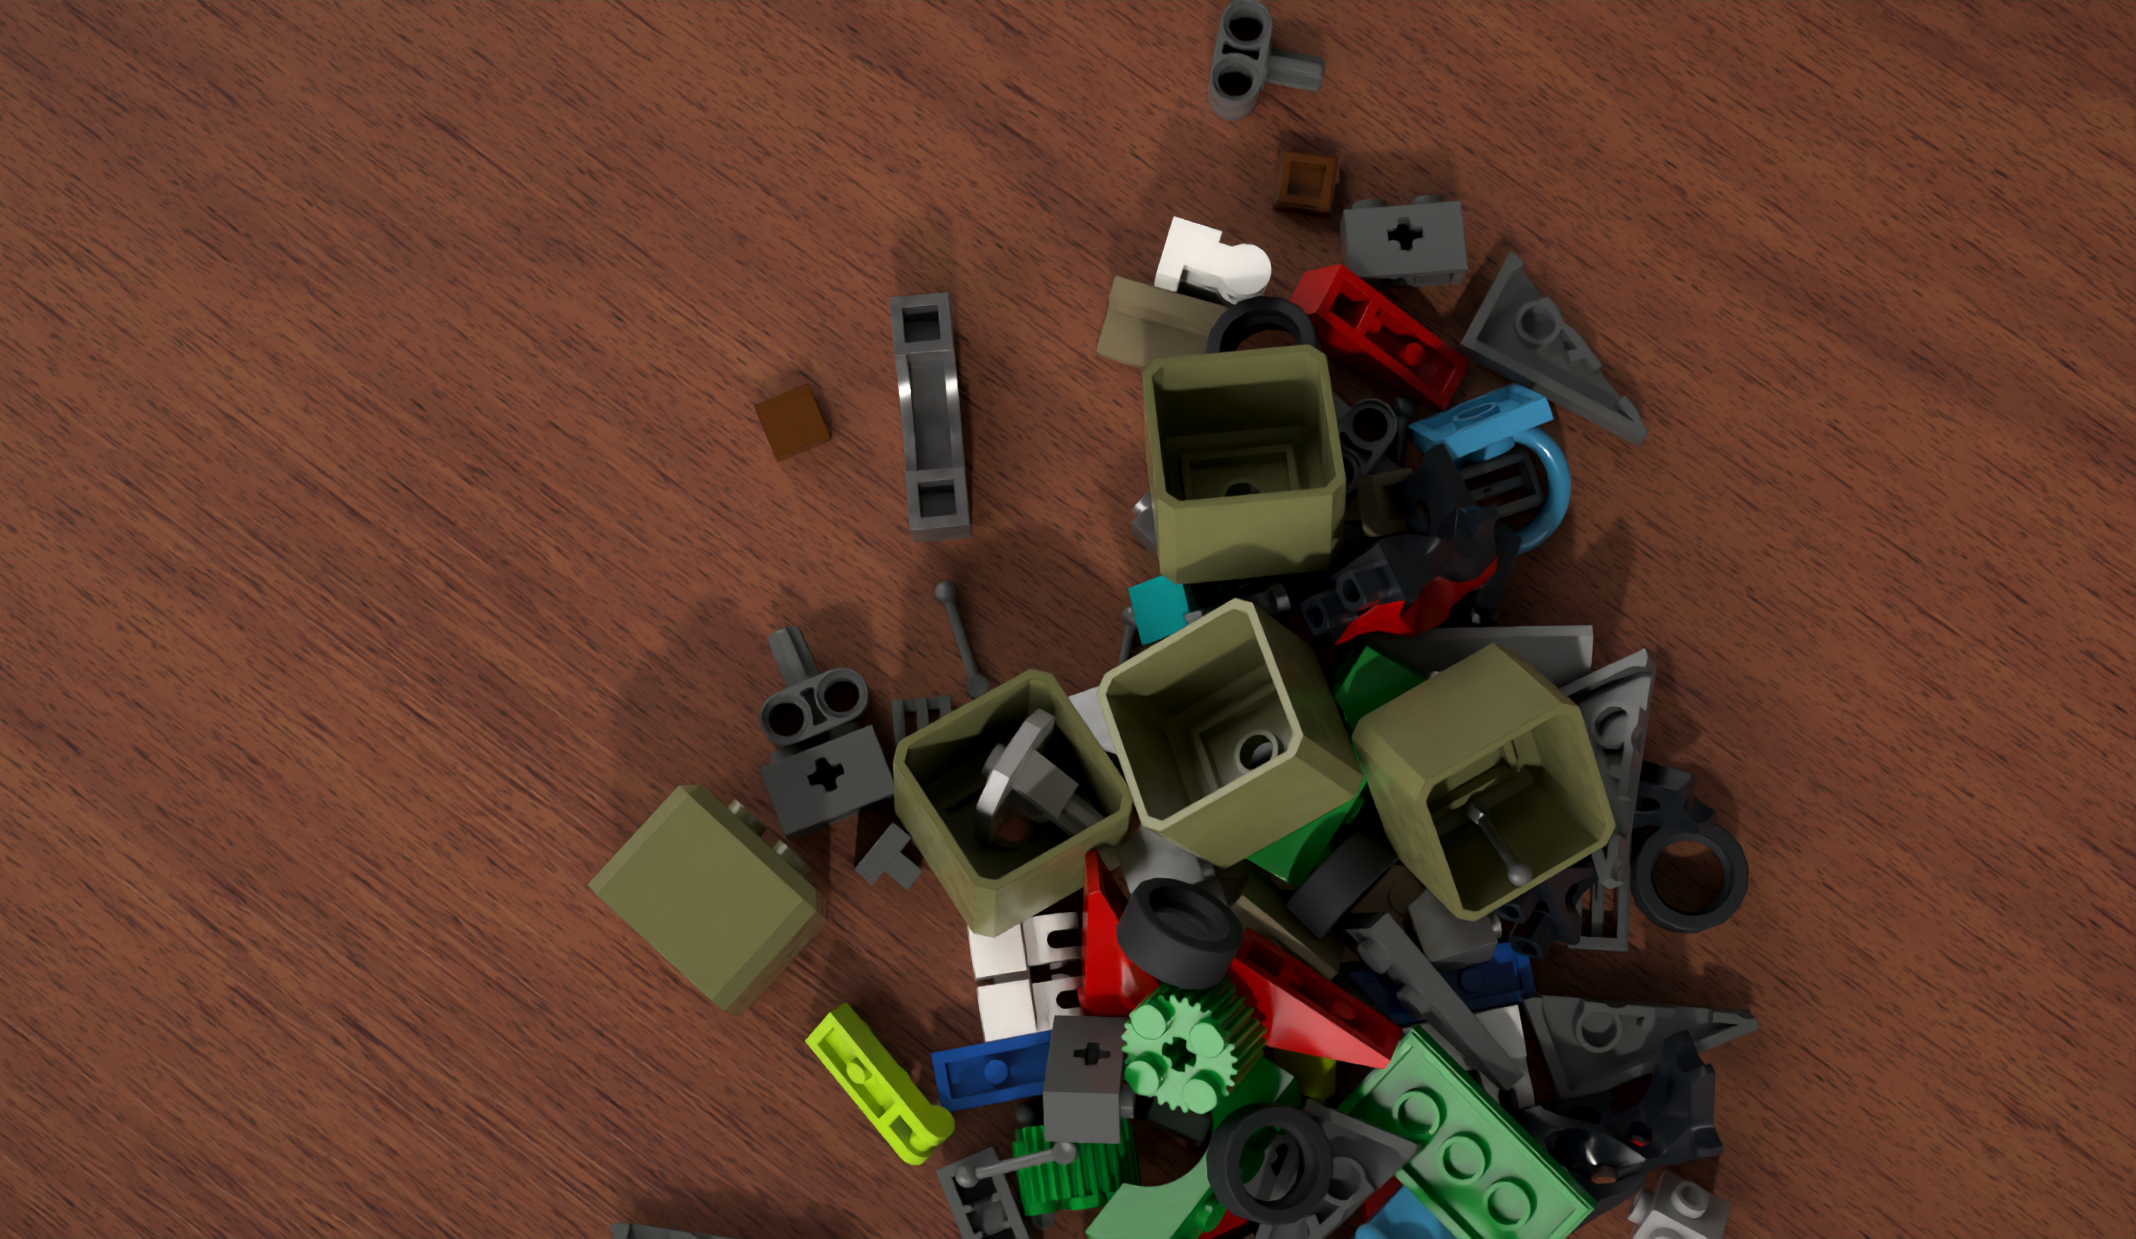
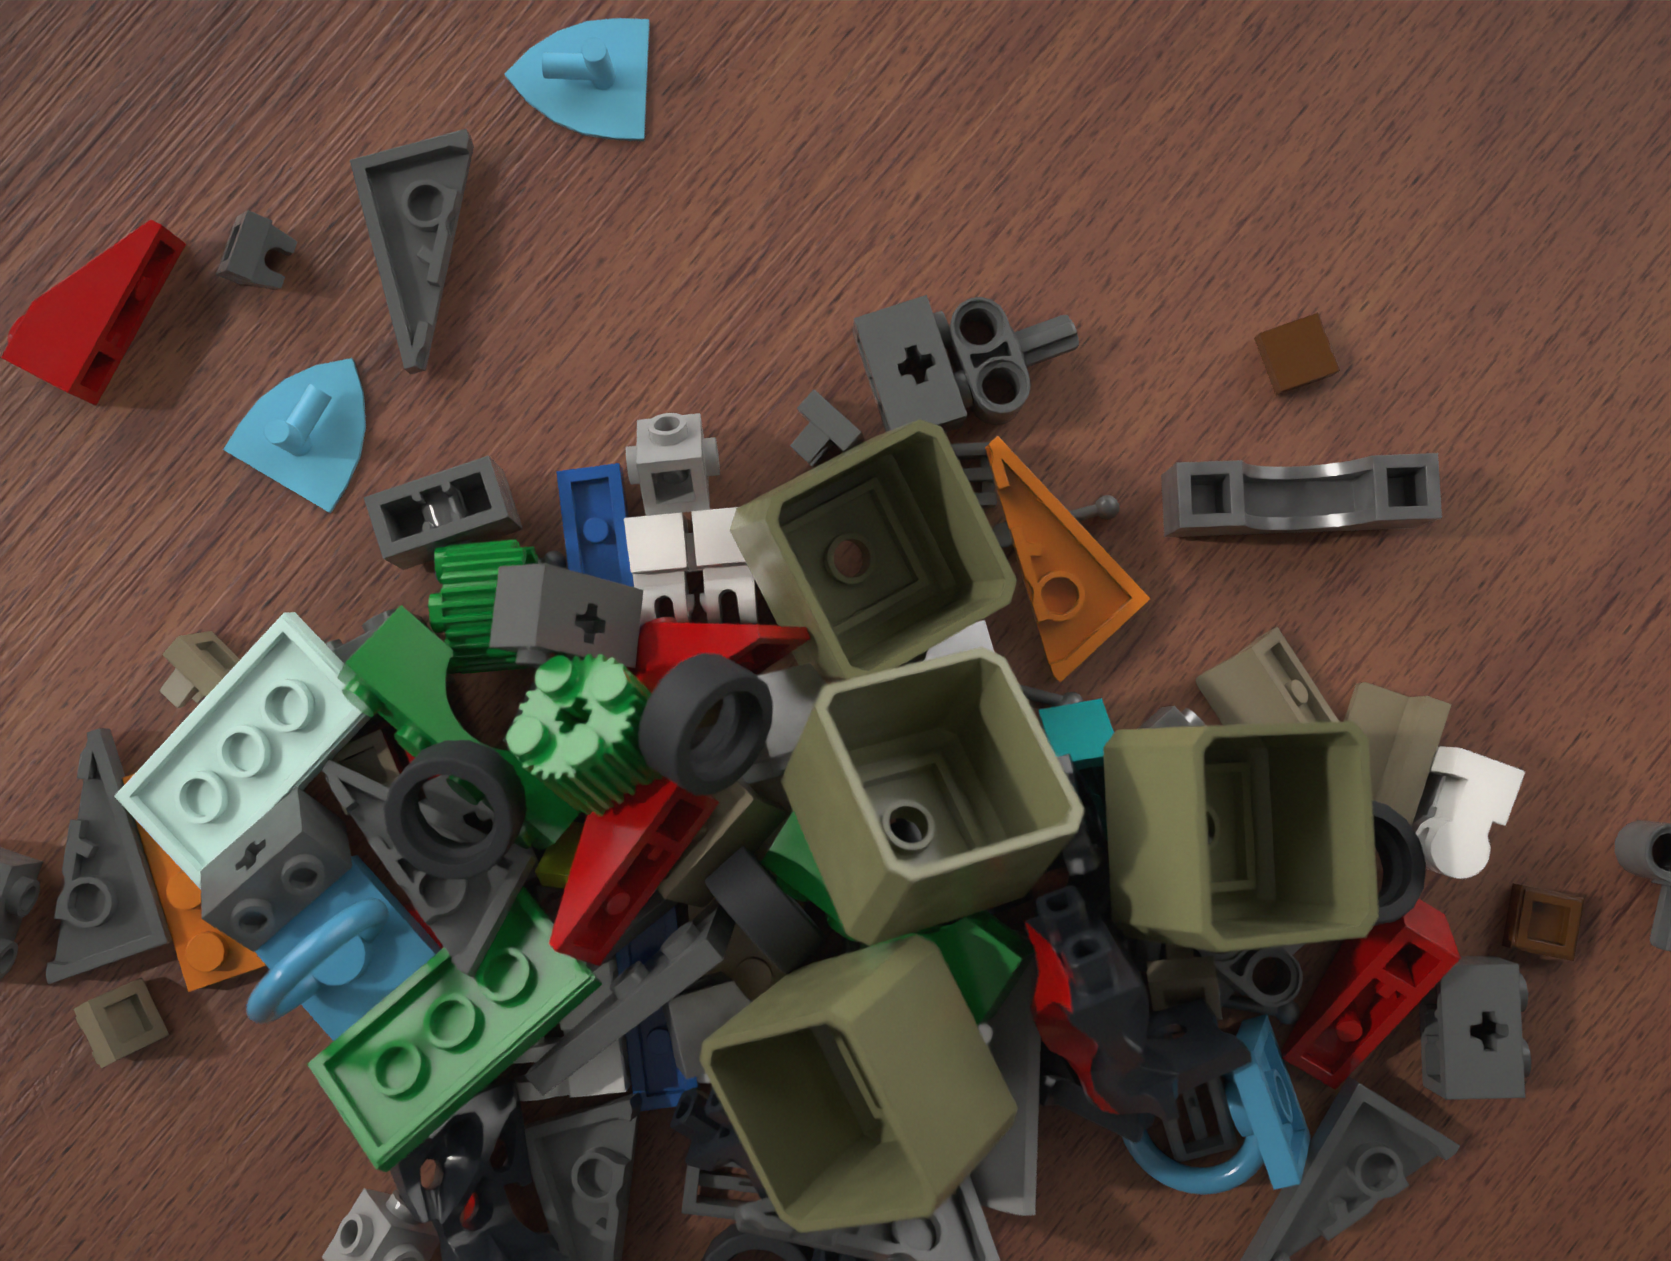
camera: 90 degrees right, 5 degrees up
(546, 1113) = (589, 78): none -> medium azure shield
(714, 896) = (787, 229): olive plate -> none
(880, 1086) = (589, 410): lime plate -> none
(930, 1000) = (673, 463): none -> light grey brick
(1016, 623) = (1068, 576): none -> orange wing
(1030, 784) = (896, 568): light grey piece -> none
(1062, 1152) = (478, 489): dark grey hinge -> none
(1108, 438) = (1264, 686): none -> dark tan panel
(1519, 872) = (751, 1117): dark grey hinge -> none

